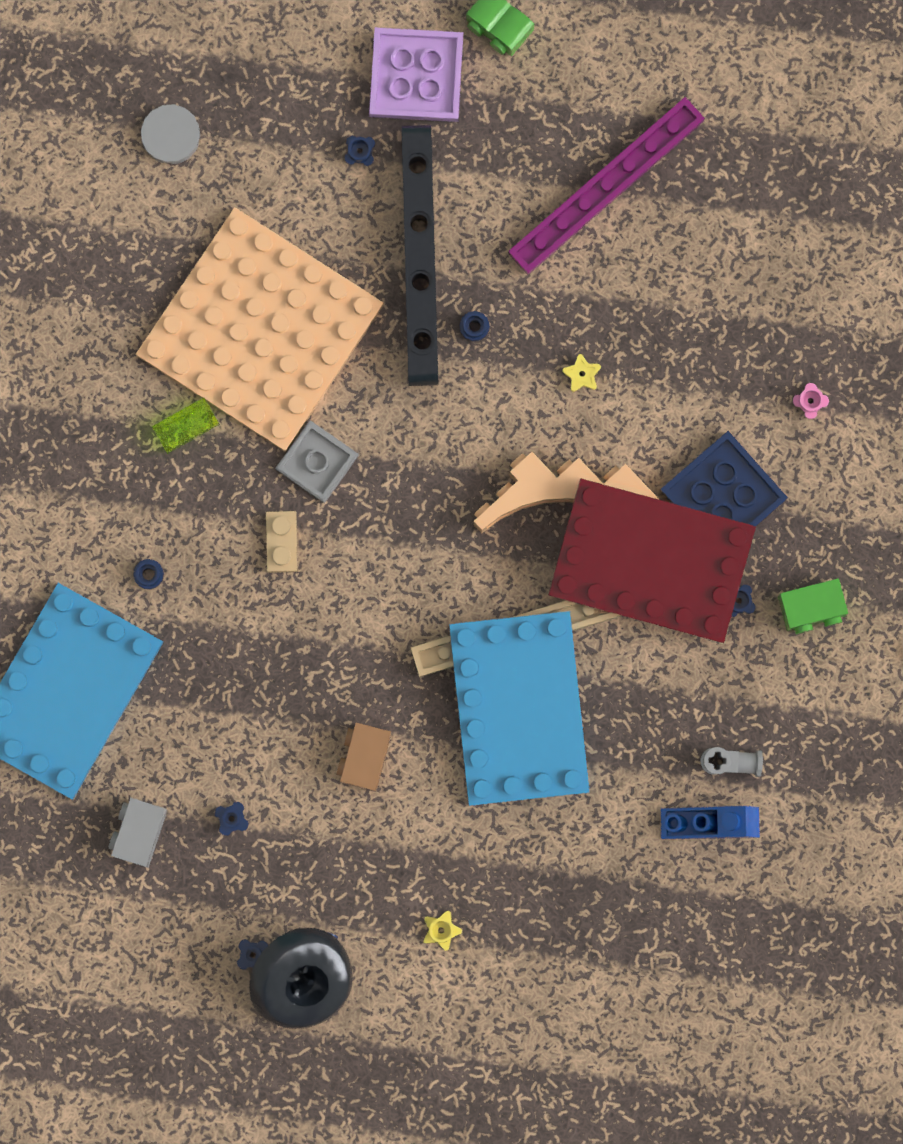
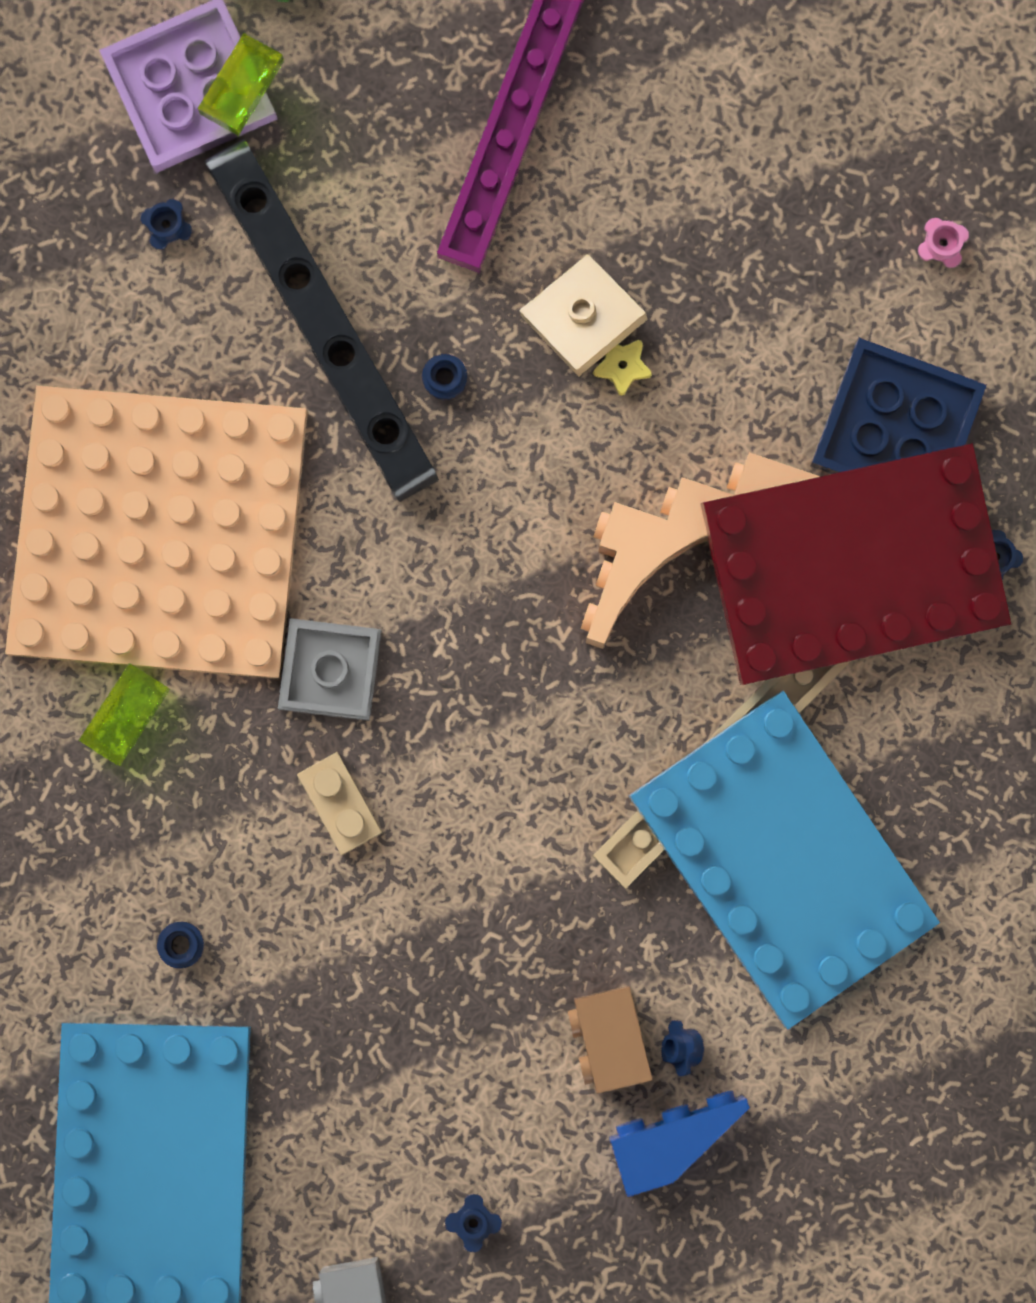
camera: 25 degrees left, 0 degrees up
(361, 835) = (666, 1149): none -> blue slope
(403, 783) = (682, 1048): none -> dark blue plate
(433, 934) = (836, 1233): light yellow plate -> none
(446, 92) = (241, 84): none -> clear neon green plate
(574, 332) = (583, 315): none -> plate

